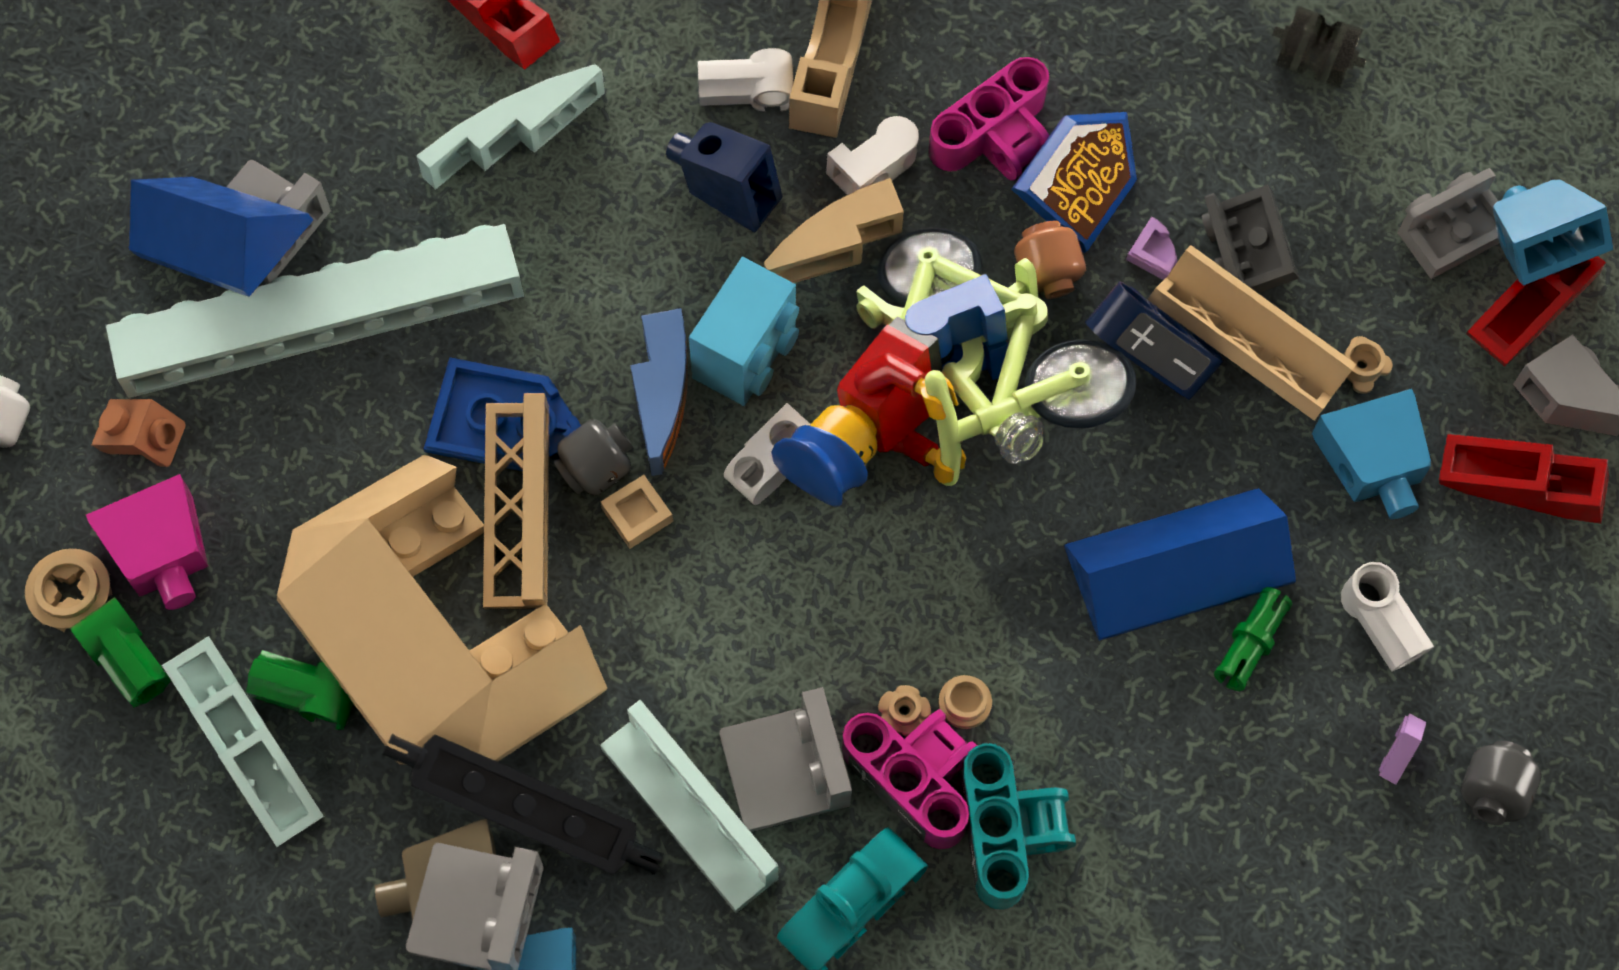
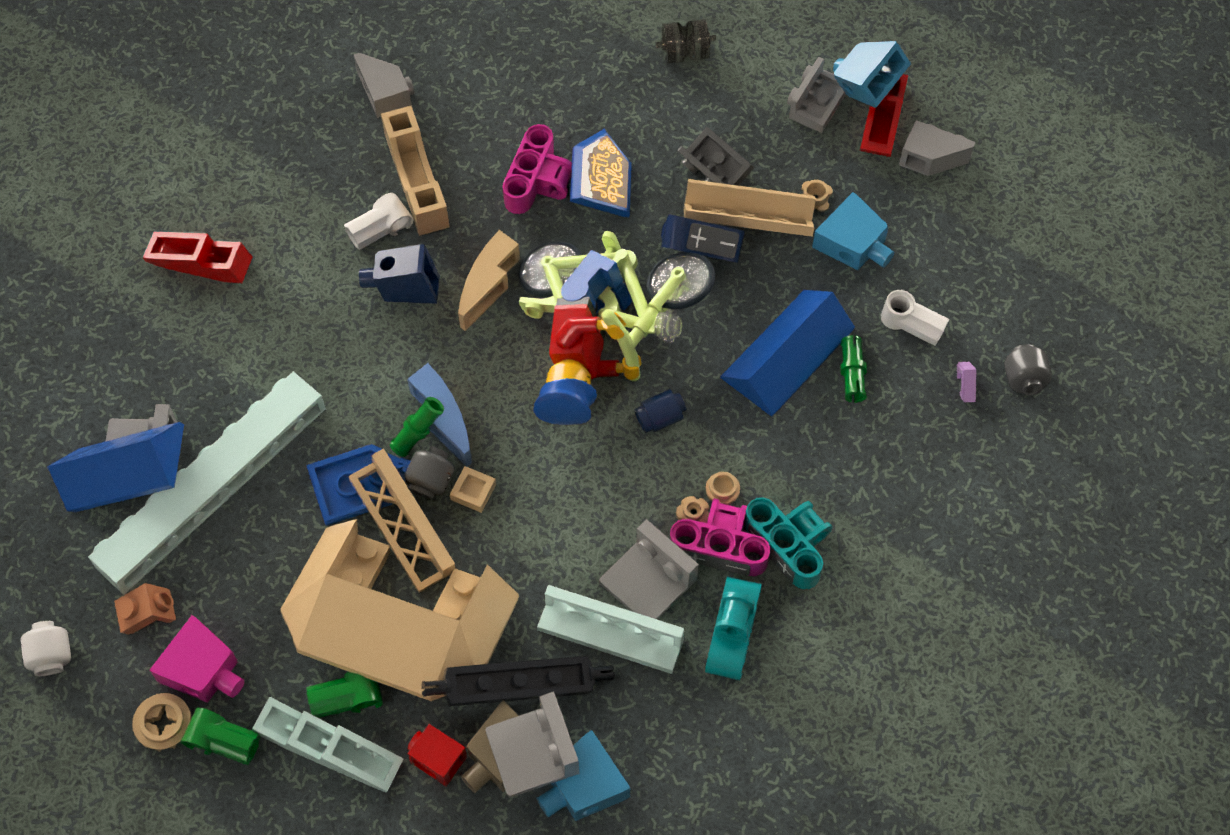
camera: 30 degrees left, 5 degrees down
(363, 837) = (436, 754): none -> red brick
(526, 116) = (261, 309): light aqua slope -> none
(613, 387) = (417, 426): none -> green pin
(744, 332) = (474, 356): medium azure brick -> none
(753, 467) = (526, 427): white leg -> none
(878, 158) = (482, 226): white leg -> none
(948, 547) = (660, 411): none -> dark blue brick
(1055, 256) = (617, 221): nougat head -> none
(1154, 250) = (666, 196): lavender tile -> none
(1526, 476) = (938, 207): red slope -> none

